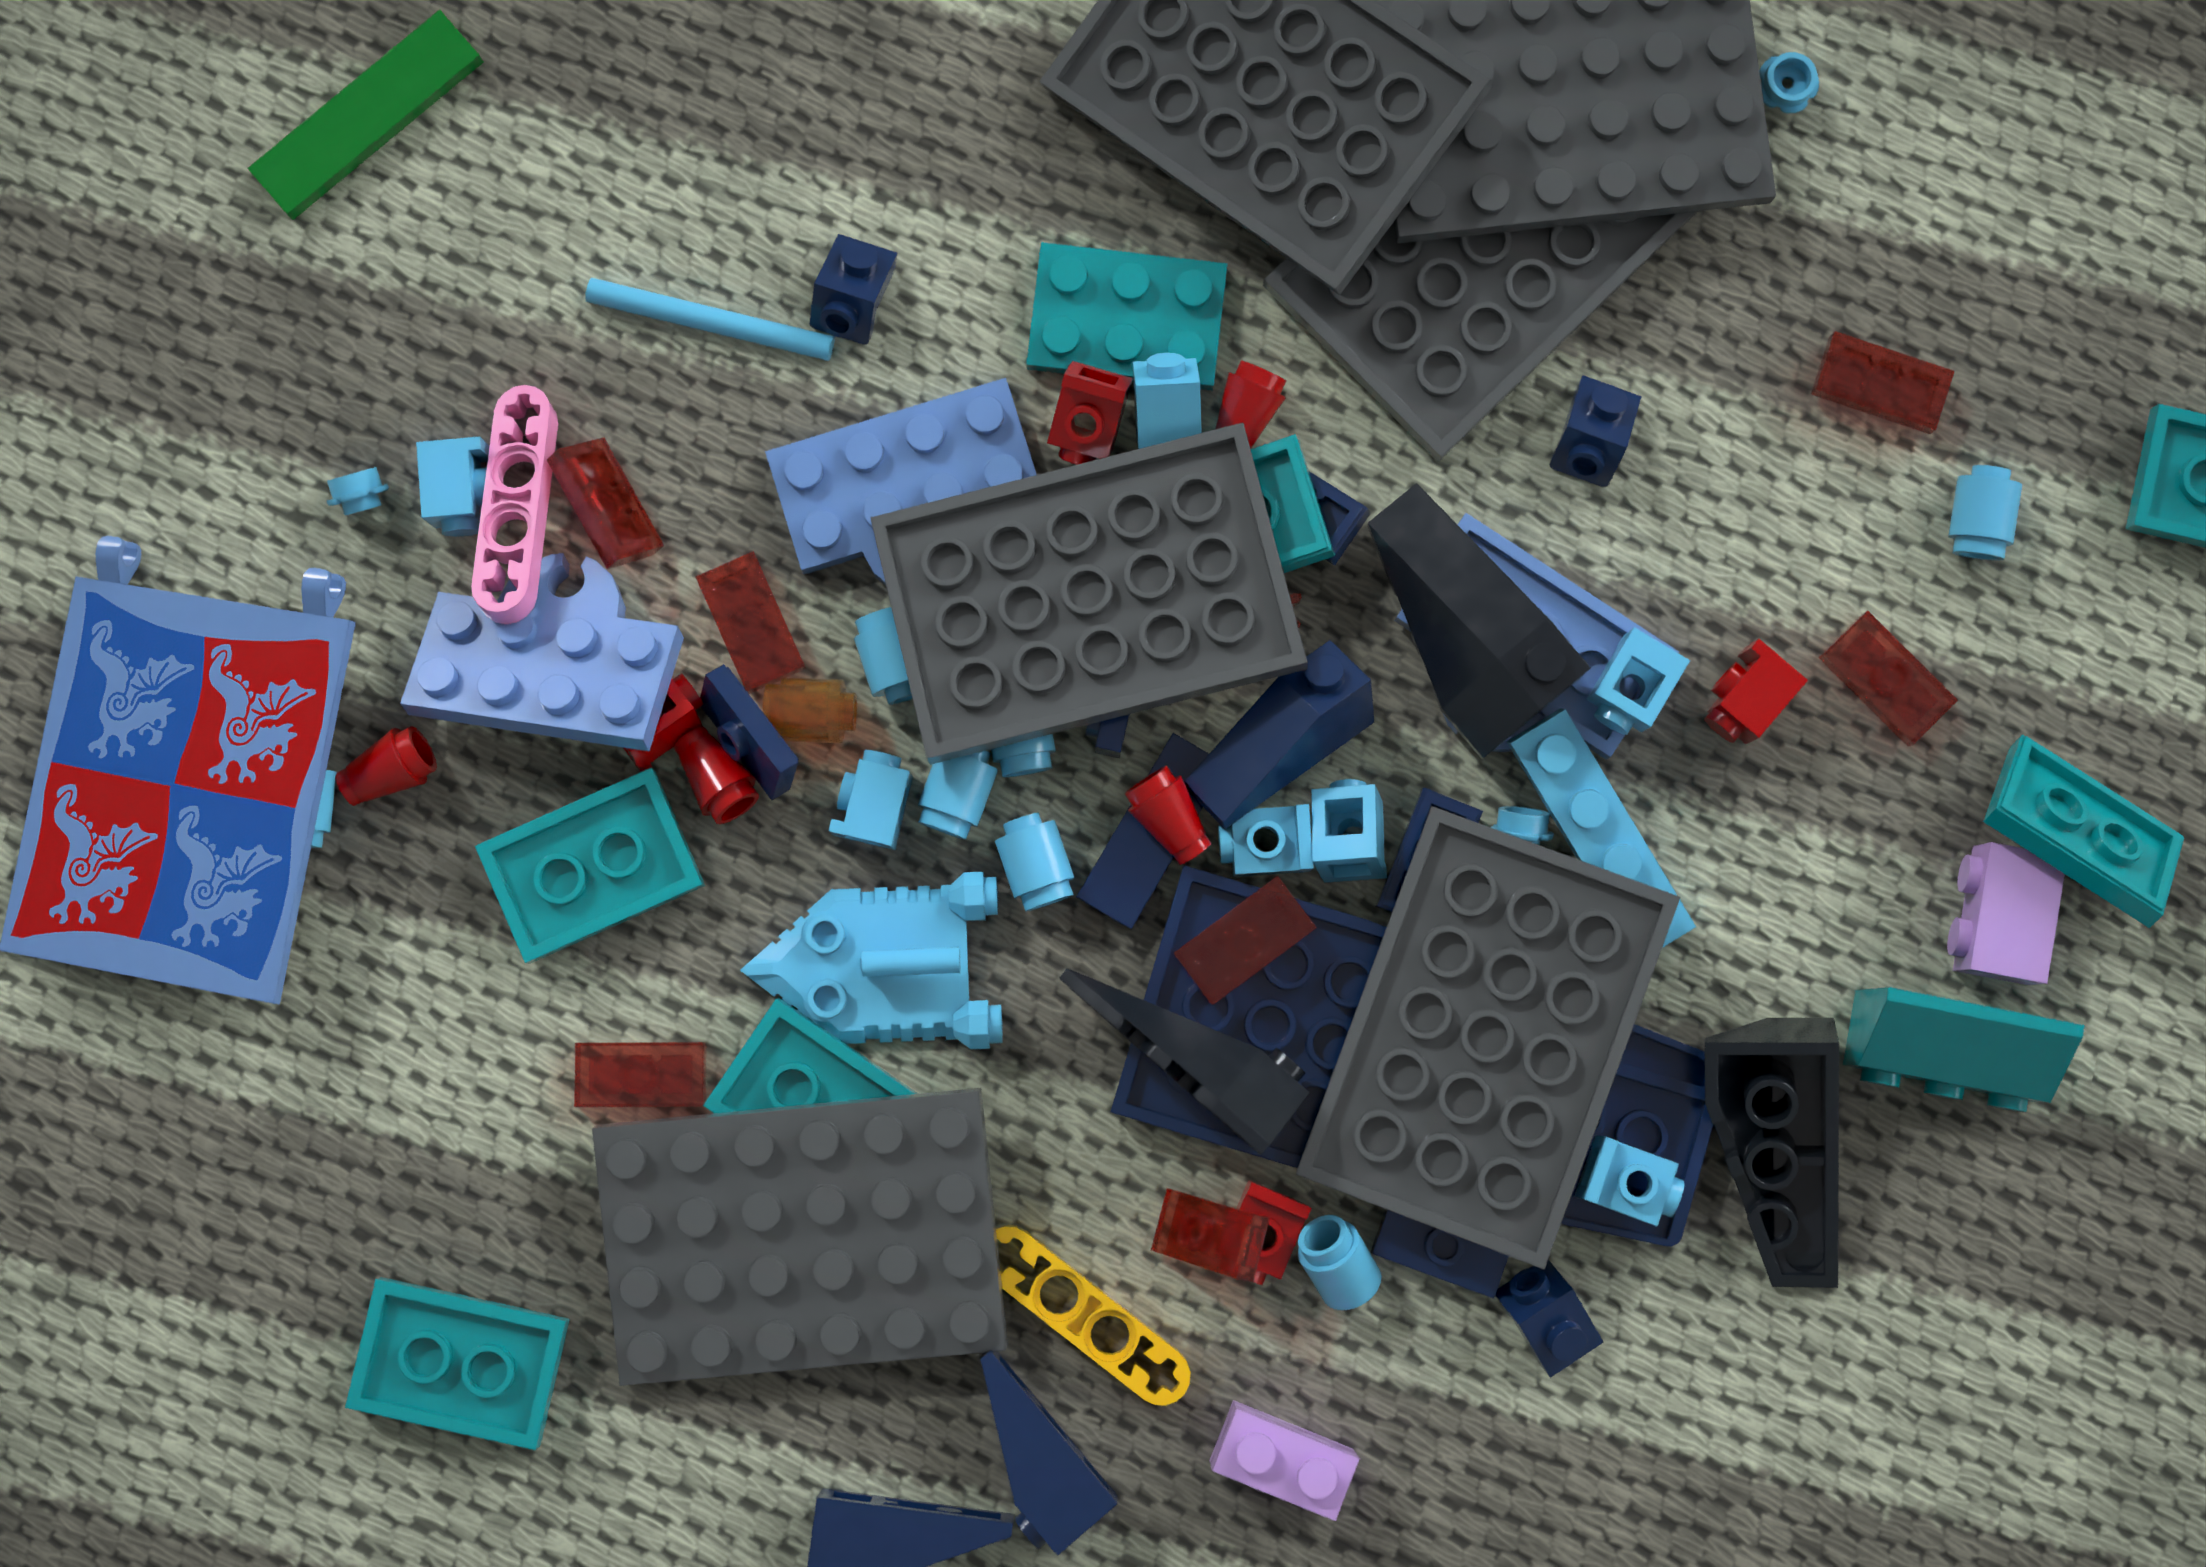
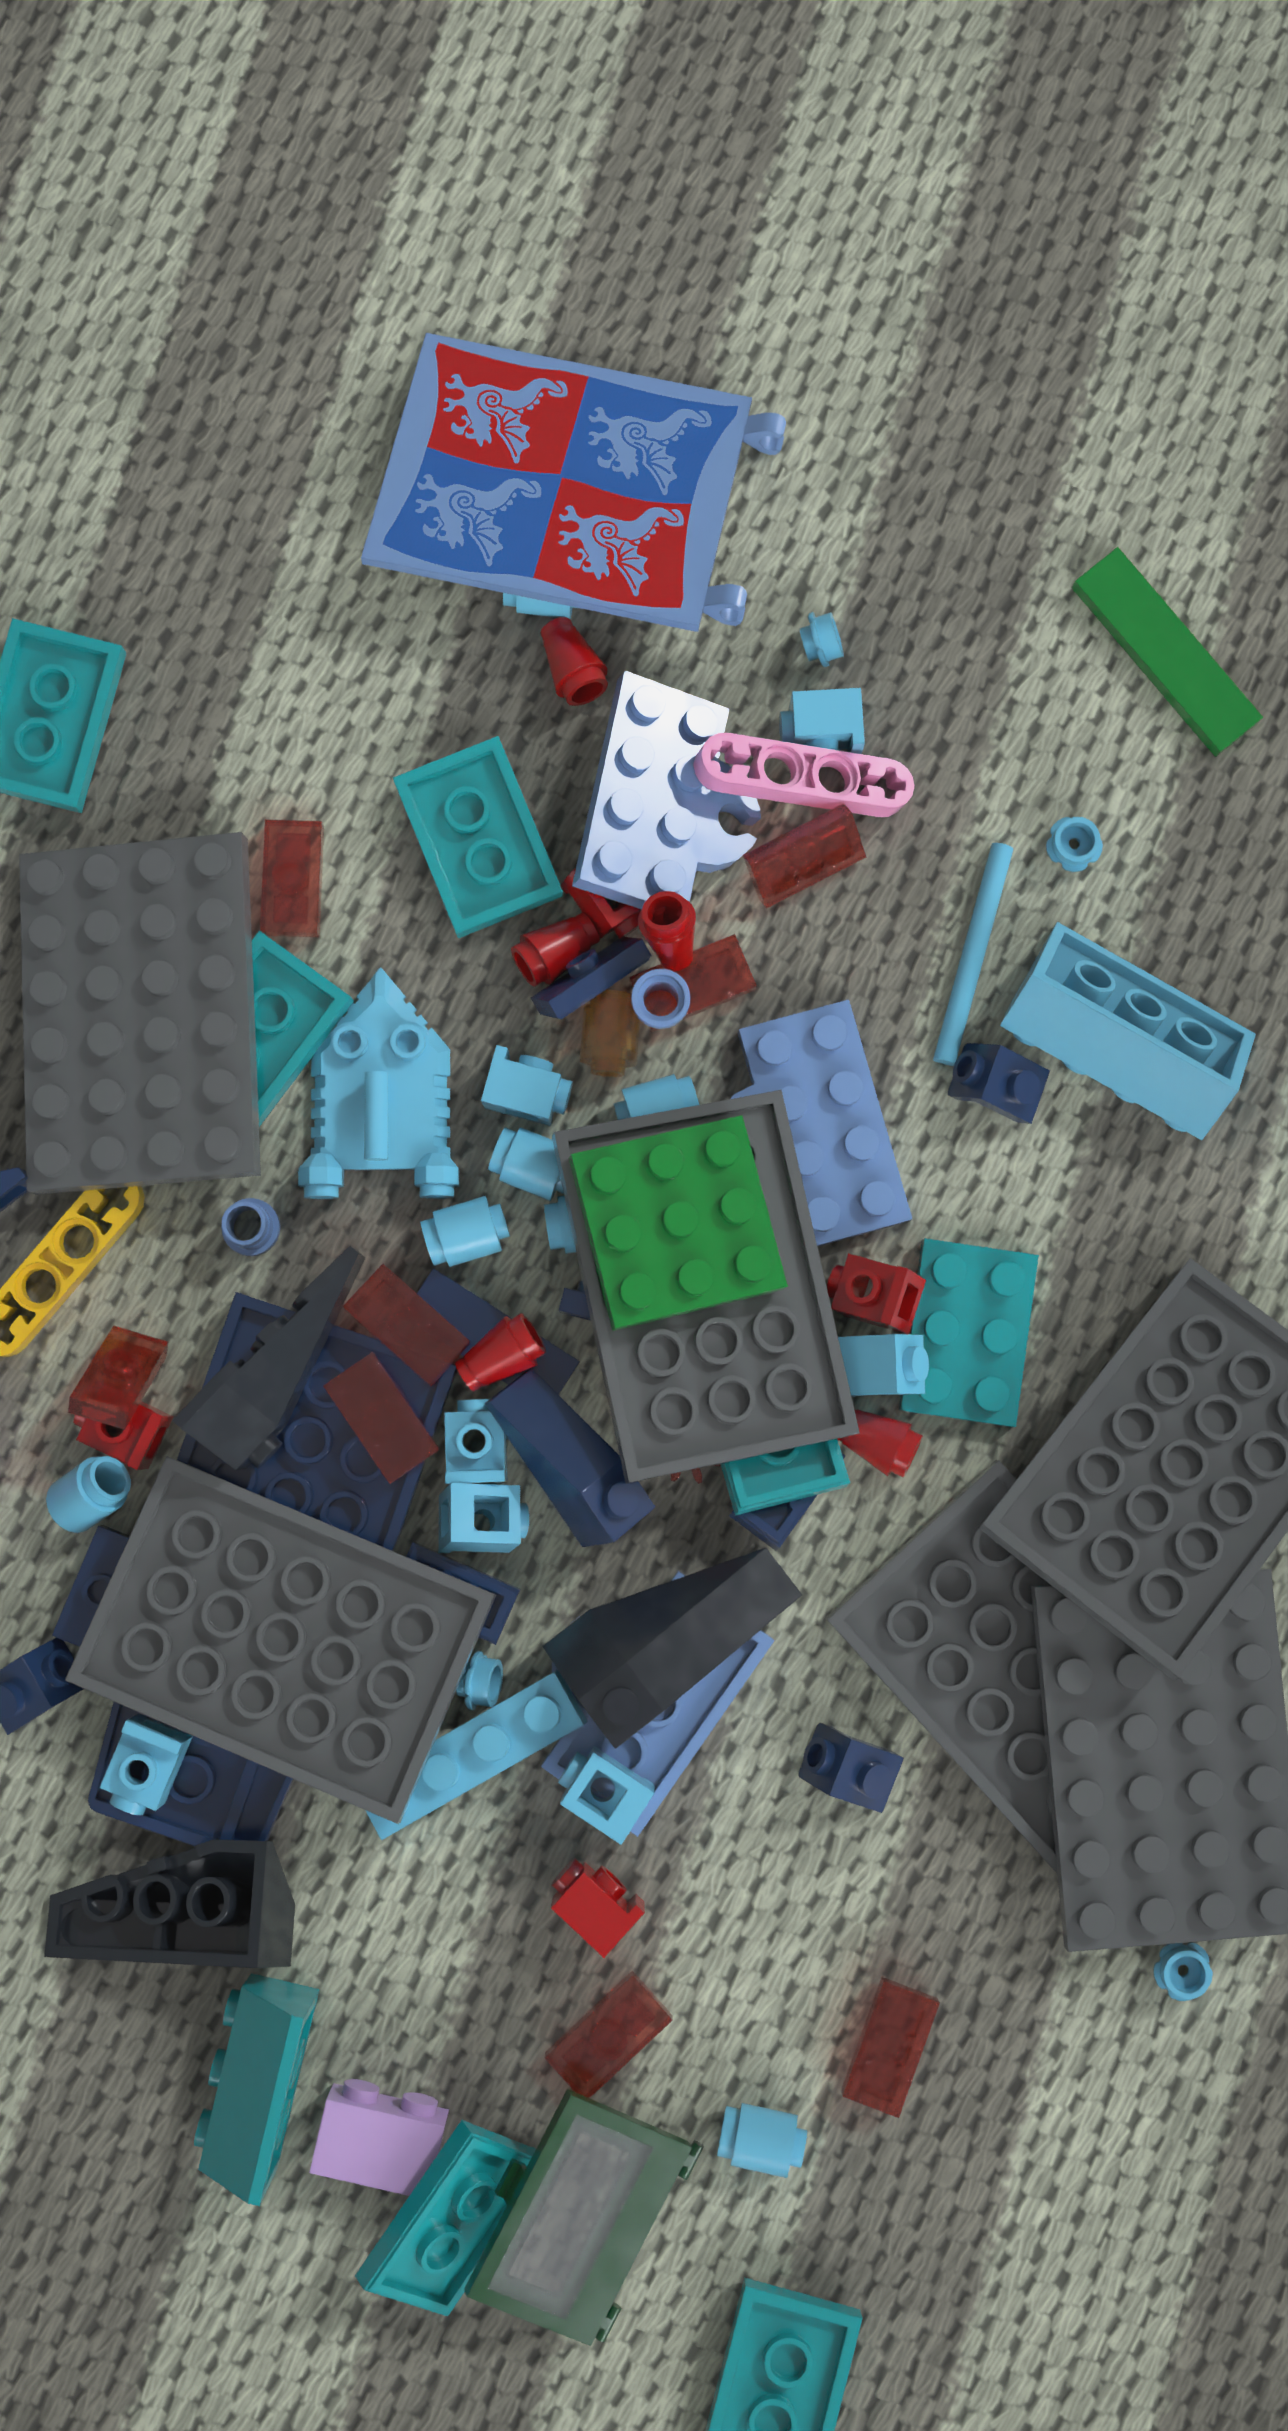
camera: 90 degrees right, 0 degrees up
(582, 195) = (1081, 830): none -> medium azure plate
(695, 642) = (669, 928): none -> red cone
(763, 631) = (661, 980): none -> medium blue piece
(794, 148) = (1130, 1032): none -> medium azure slope
(1022, 621) = (677, 1222): none -> green plate
(1057, 1091) = (267, 1234): none -> medium blue piece
(1141, 919) = (406, 1325): none -> clear red plate
(2075, 698) = (578, 2218): none -> piece

